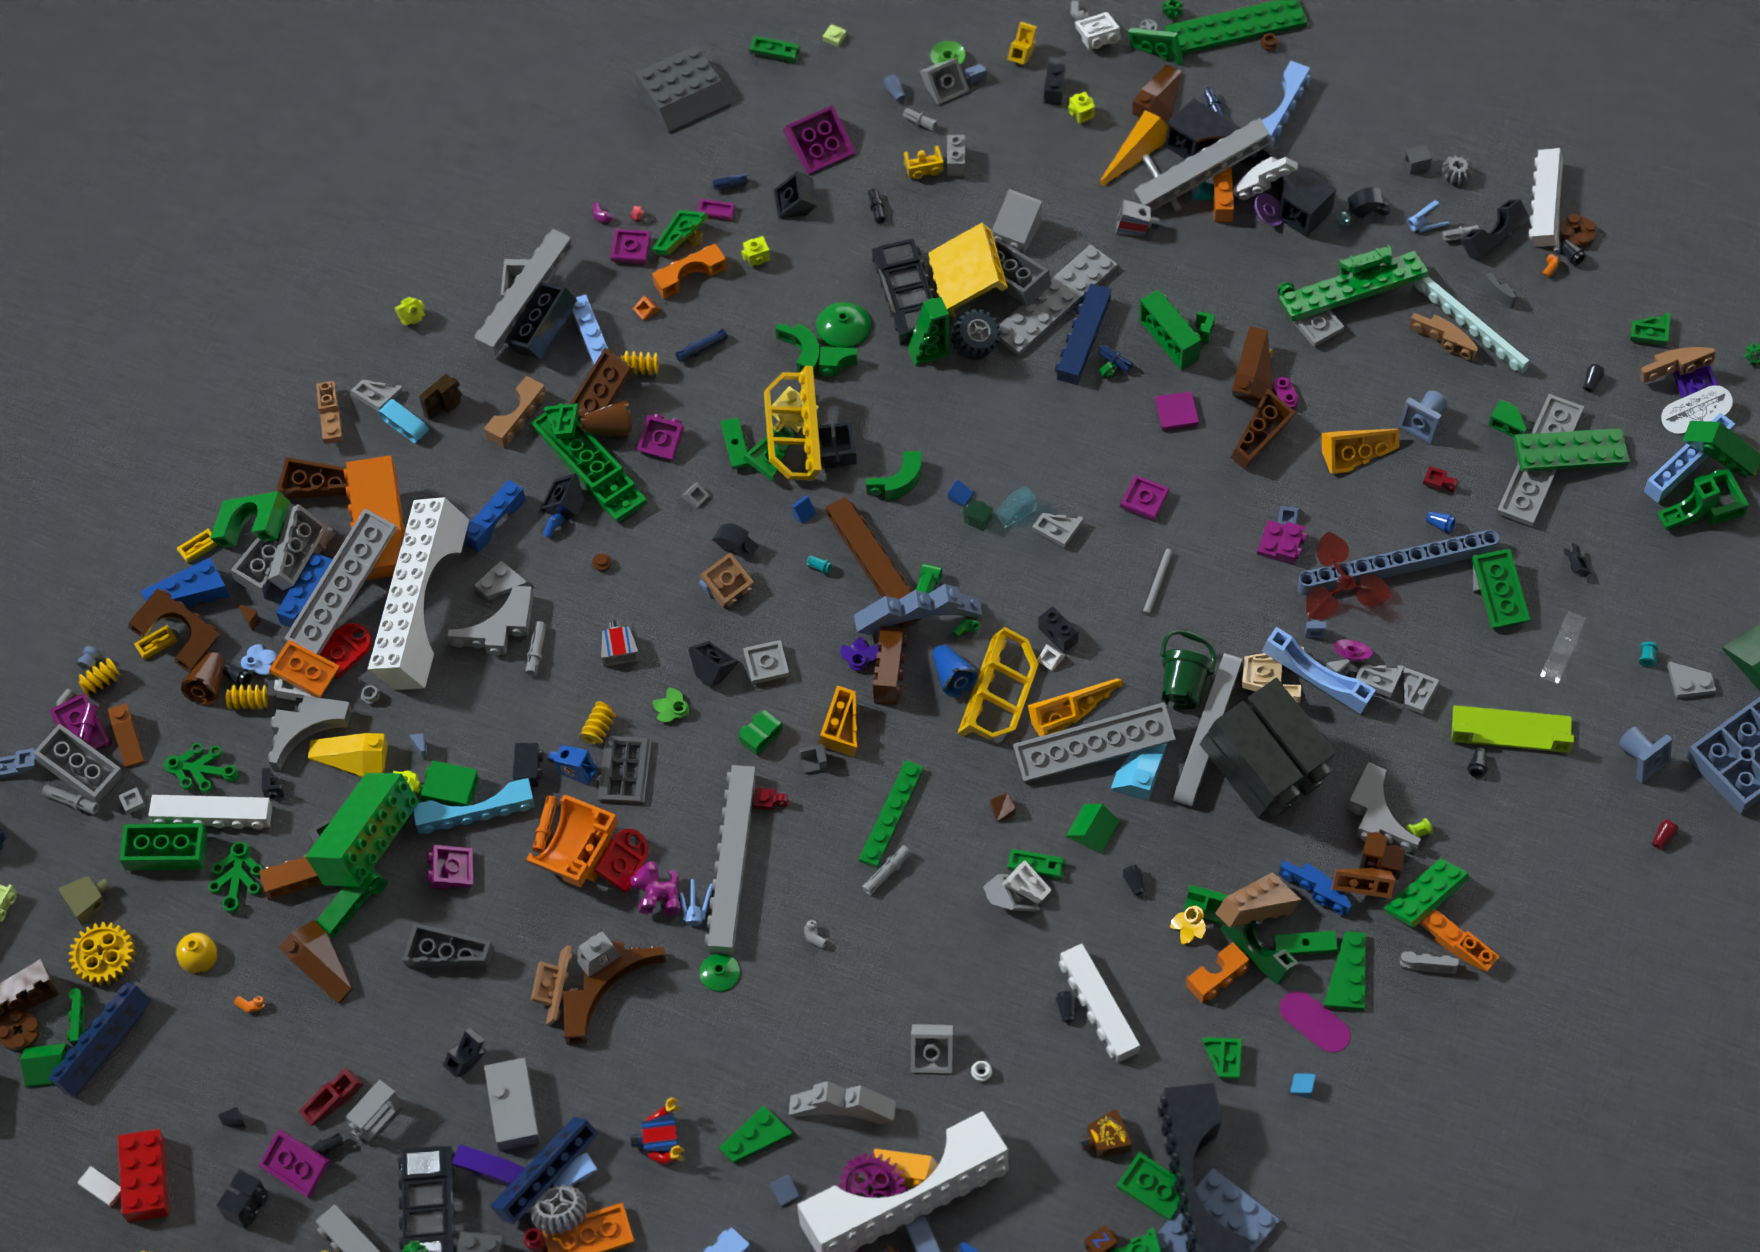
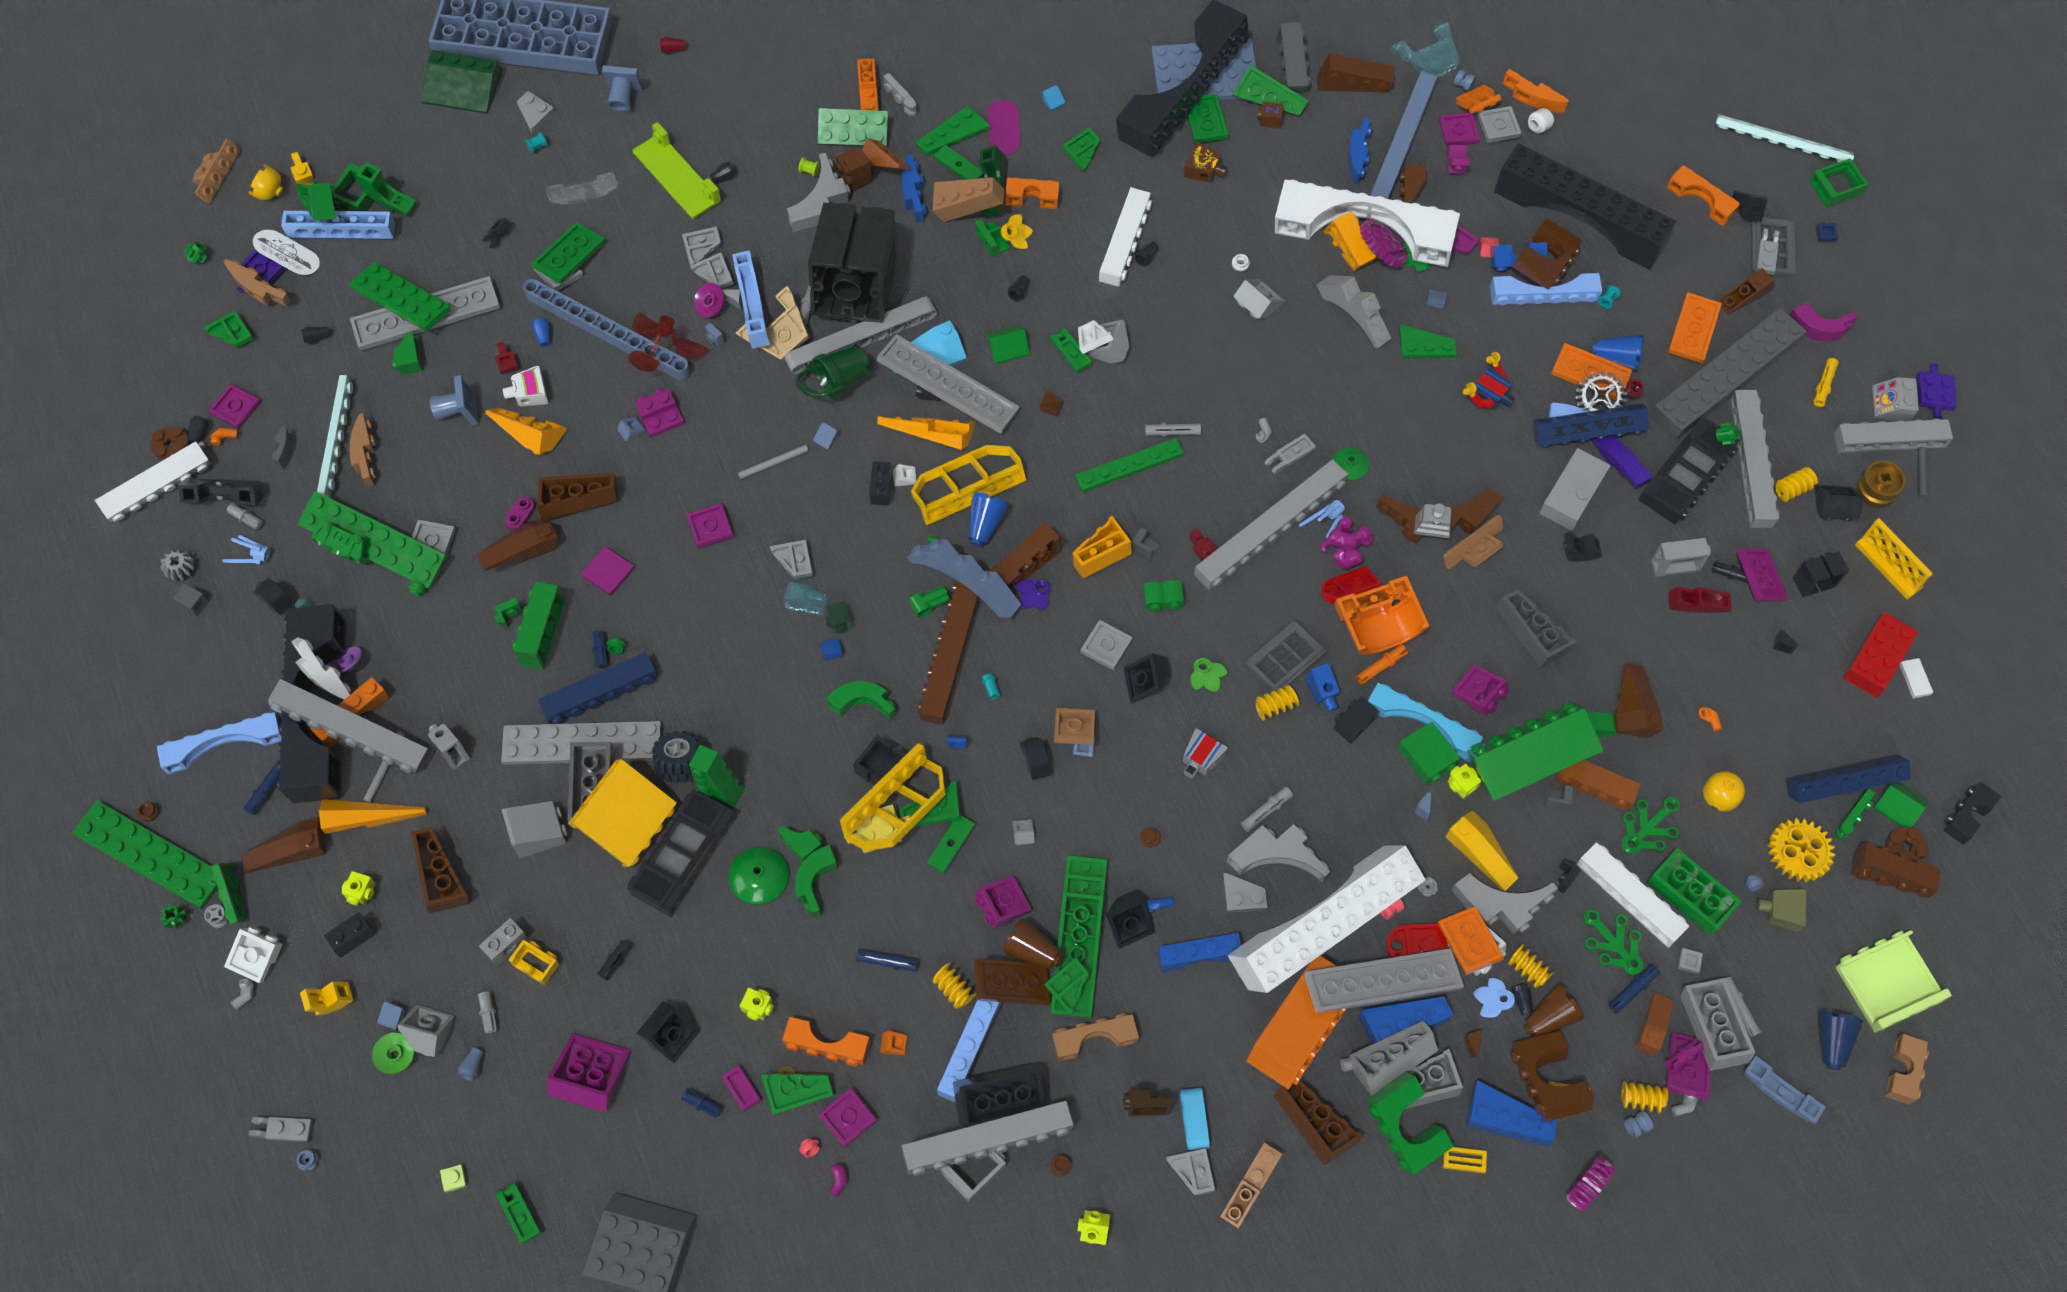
camera: 140 degrees left, 5 degrees up
(95, 588) = (1590, 1183): none -> magenta gear
(122, 899) = (1754, 883): none -> sand blue plate
(158, 754) = (1640, 983): none -> dark blue pin
(466, 330) = (1060, 1165): none -> reddish brown plate
(773, 935) = (1291, 453): none -> light grey hinge
(1045, 152) = (438, 879): none -> reddish brown wedge
(1142, 633) = (825, 436): none -> sand blue slope
(1393, 473) = (527, 388): none -> white torso
(1574, 290) = (234, 406): none -> magenta tile

